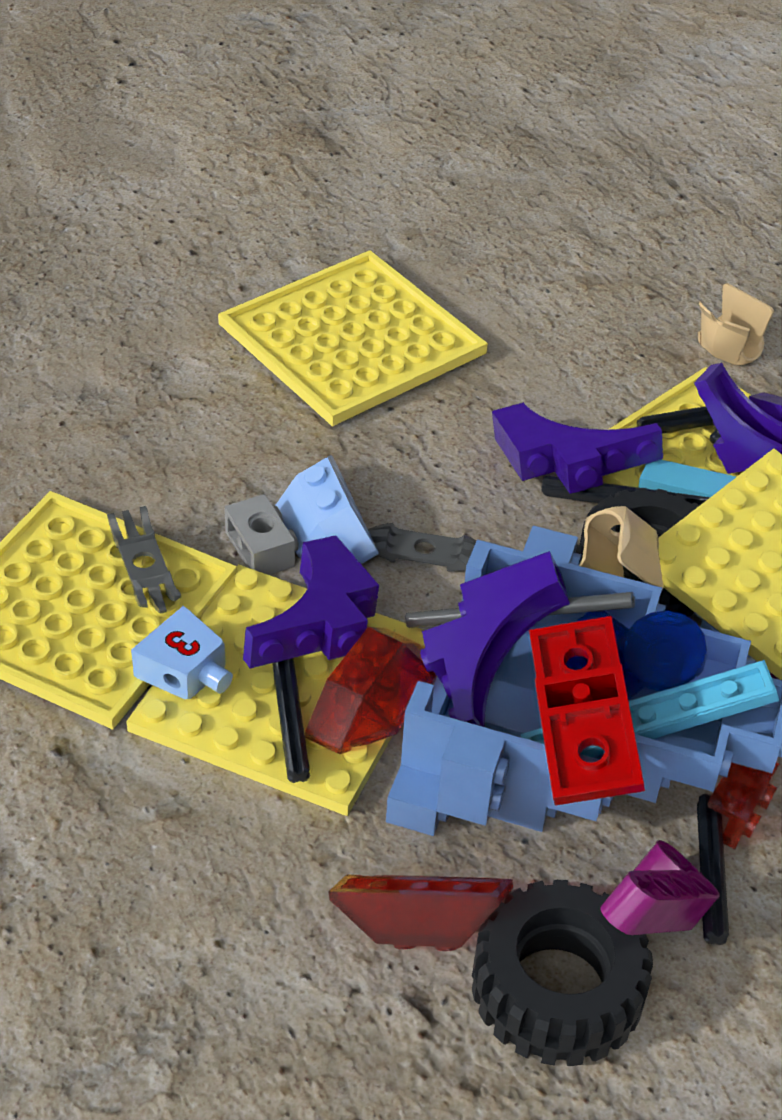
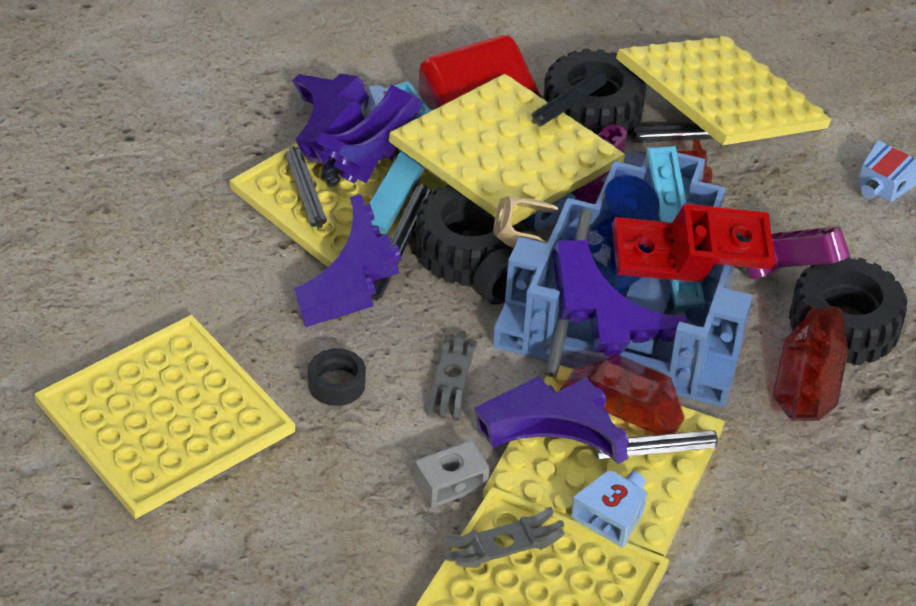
camera: 90 degrees left, 0 degrees up
(321, 507) = (415, 429): light blue wedge -> none
(407, 434) = (336, 393): none -> black tyre
(739, 330) = (177, 158): tan piece -> none

